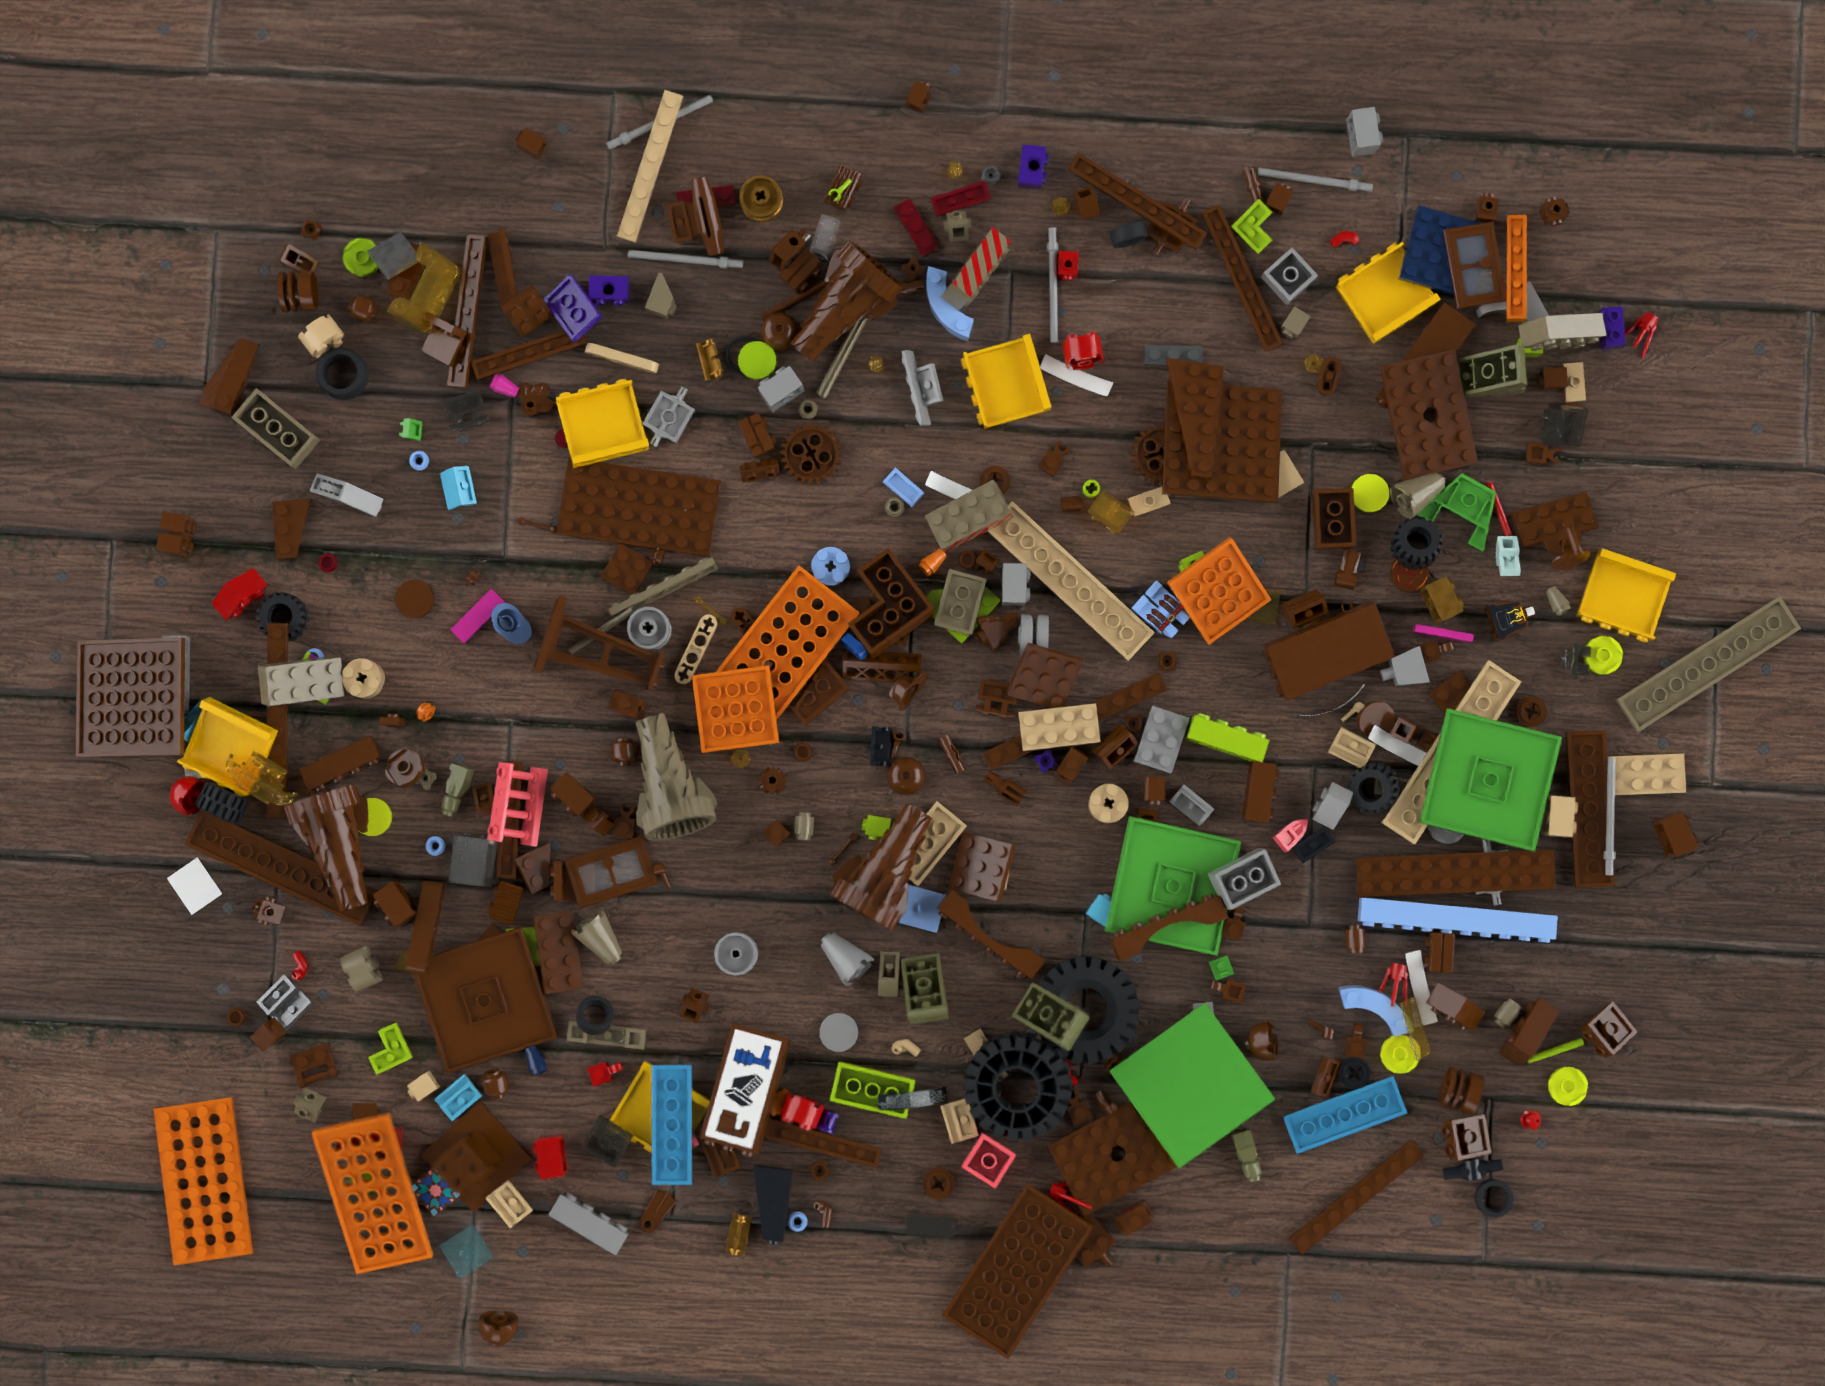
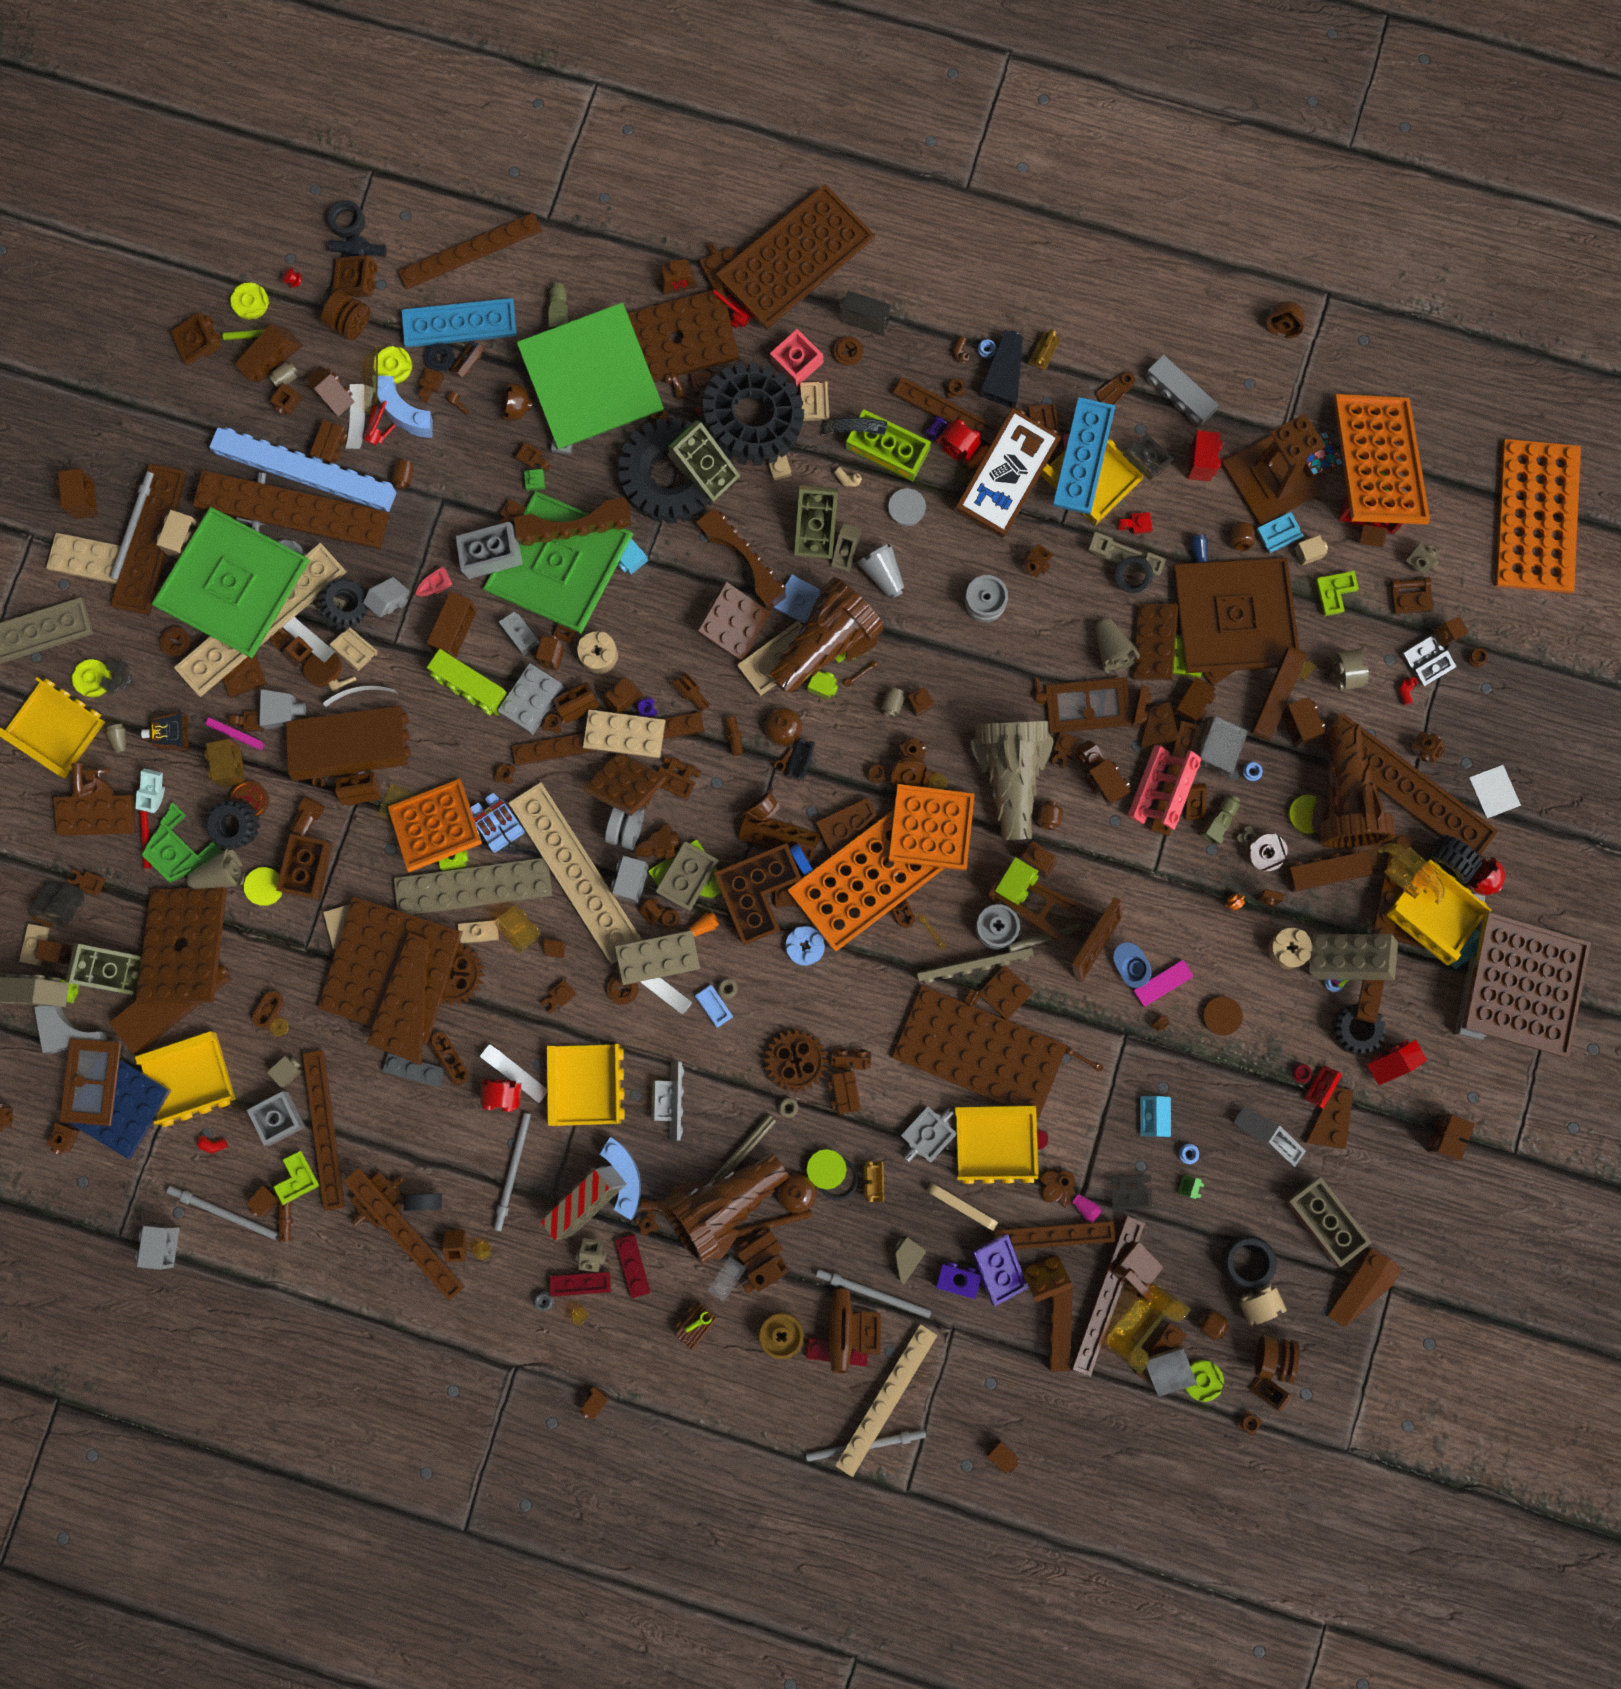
camera: 165 degrees left, 5 degrees down
(305, 554) = (1323, 1086): none -> red plate
(466, 1251) = (1301, 394): clear light blue plate -> none
(509, 1203) = (1252, 426): tan plate -> none
(639, 672) = (1017, 880): none -> lime brick
(698, 650) = (958, 899): tan beam -> none
(770, 757) = (909, 772): none -> reddish brown tile
(780, 388) = (810, 1132): light grey brick -> none
(876, 364) = (709, 1135): clear yellow plate -> none
(1030, 155) = (508, 1290): dark purple brick -> none
(1067, 265) = (492, 1187): red brick -> none
(1087, 484) = (529, 952): lime bush -> none
(1150, 373) = (461, 1069): none -> reddish brown beam
(1166, 543) = (473, 887): none -> dark tan plate
(1313, 844) = (415, 569): black plate -> none
(1501, 993) = (287, 395): none -> reddish brown brick
(1516, 268) = (51, 1068): orange plate -> none

